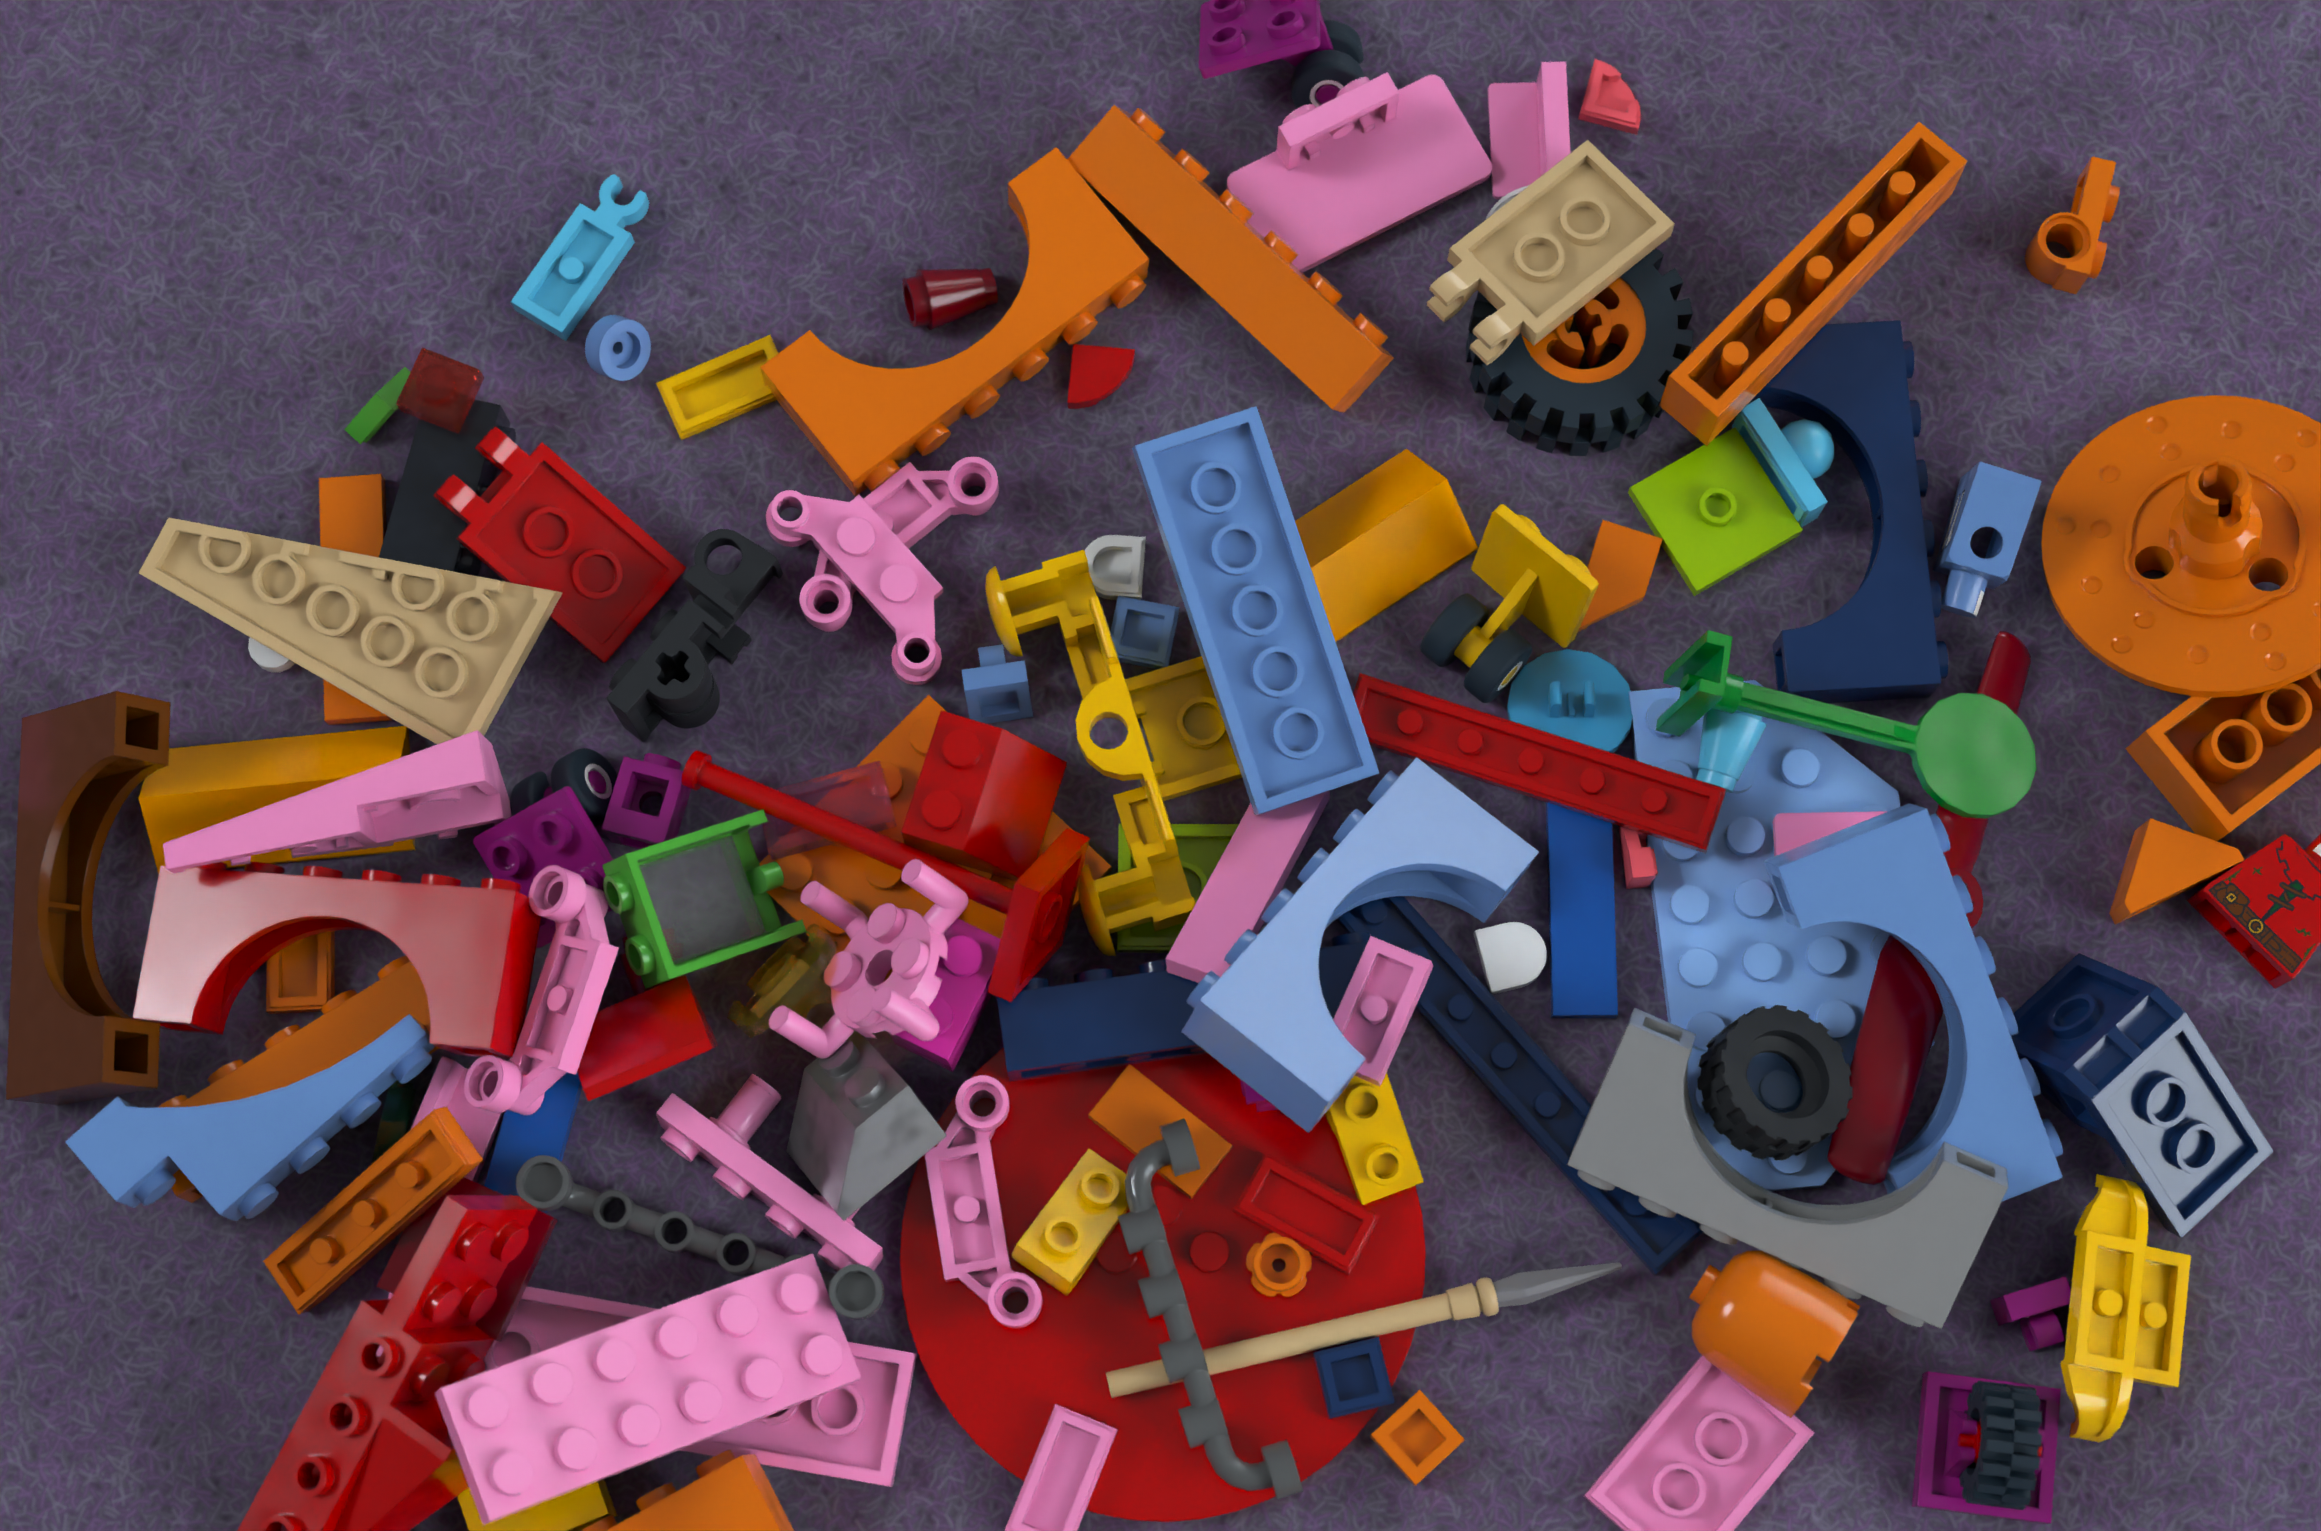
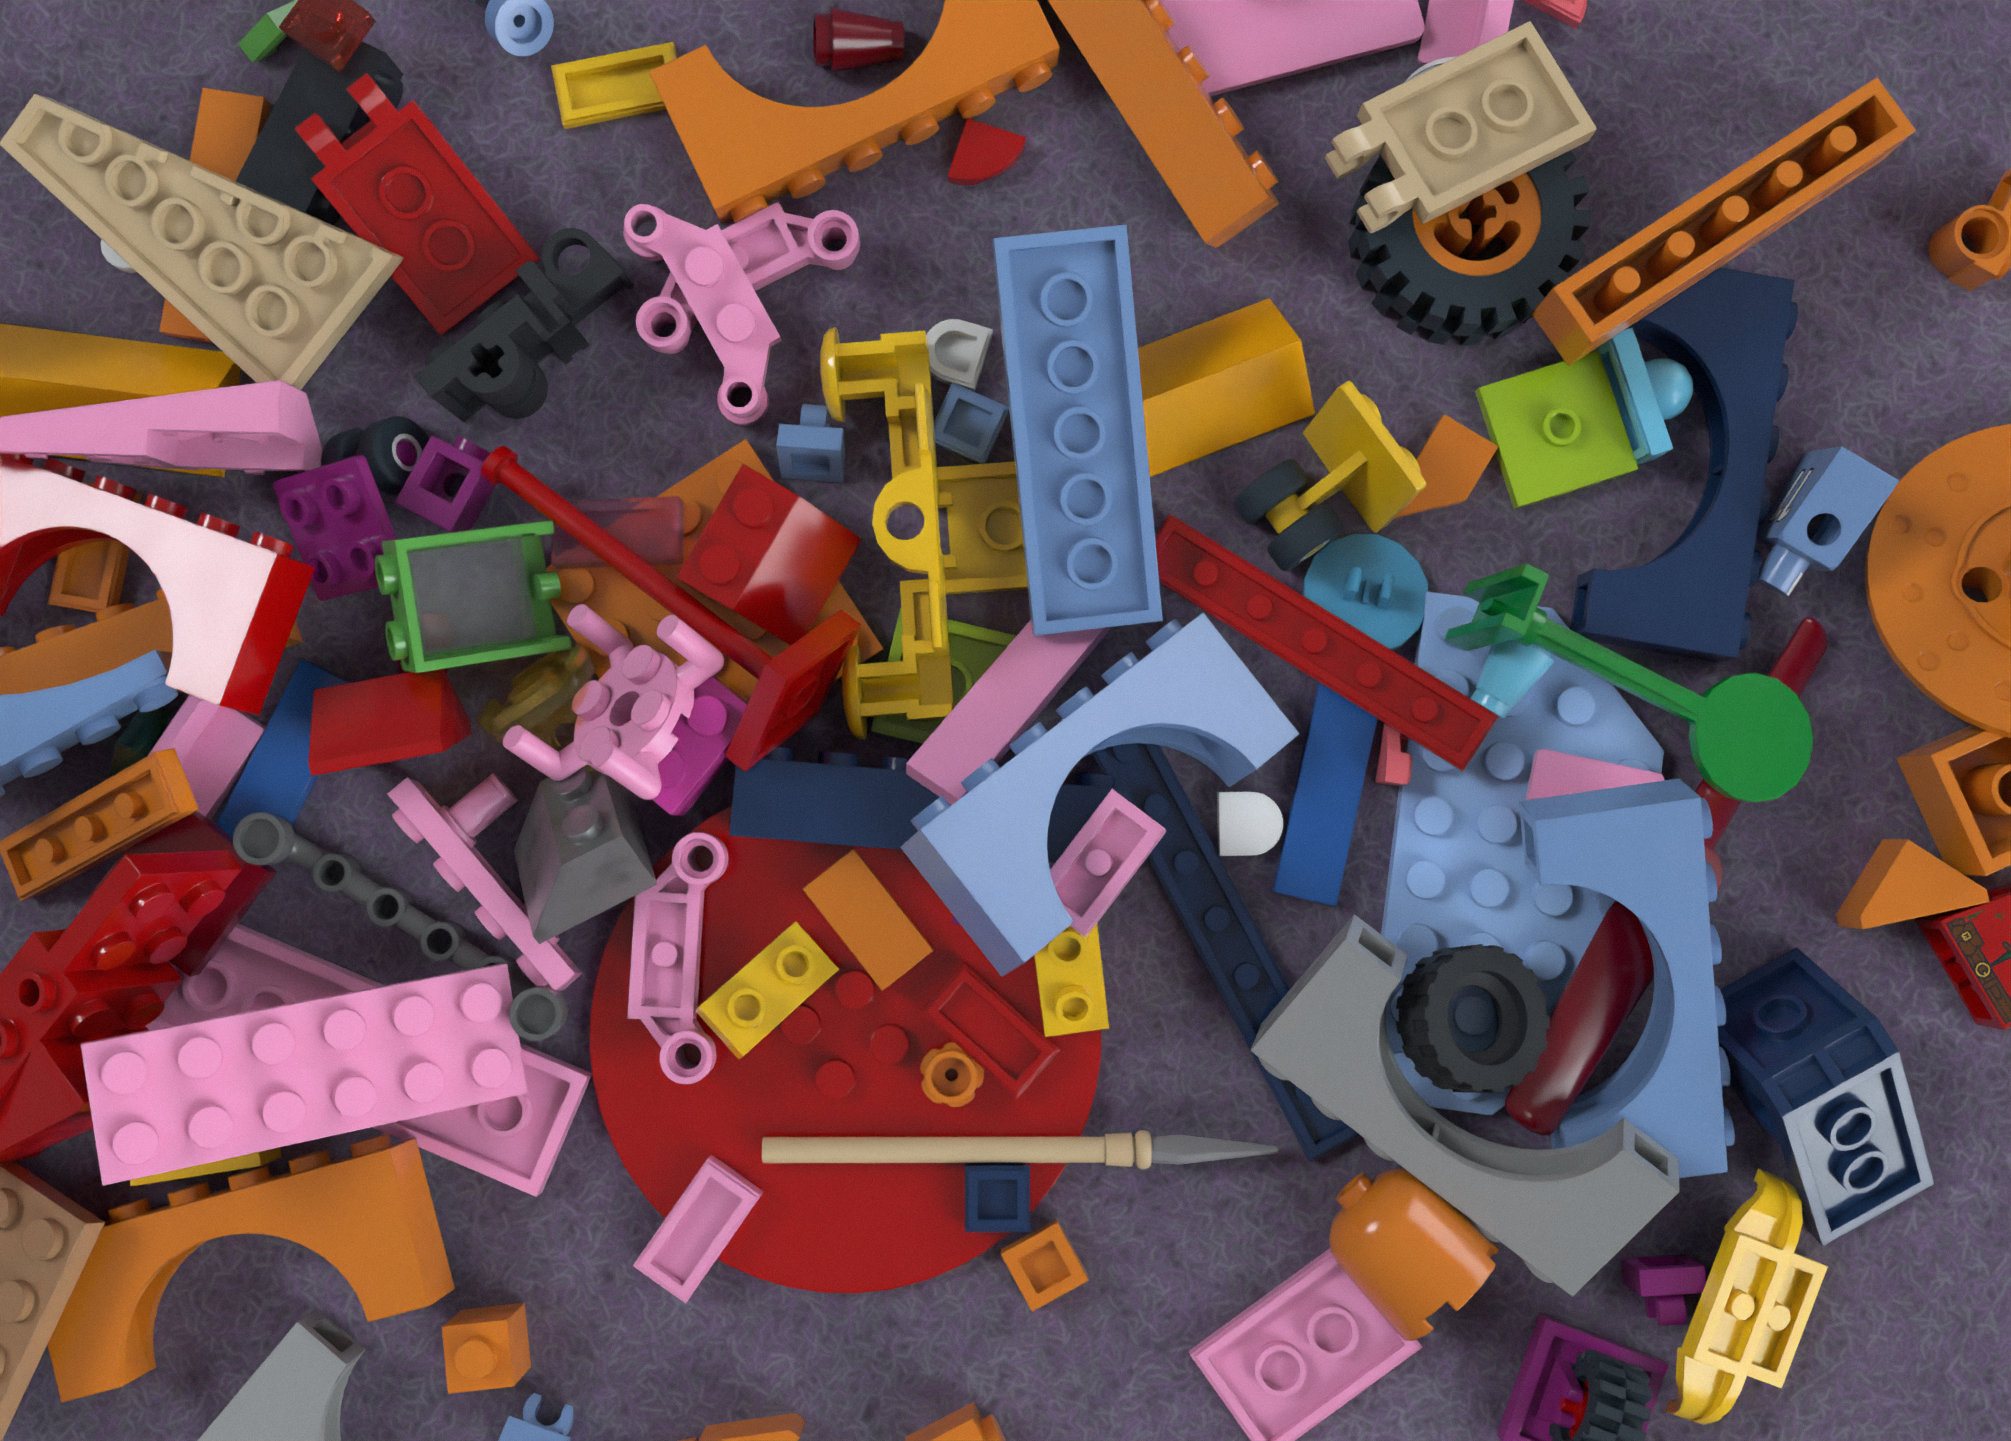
camera: 15 degrees right, 10 degrees up
(562, 1002) = (311, 667): bright pink plate -> none
(1183, 1354) = (838, 1145): dark grey bar -> none

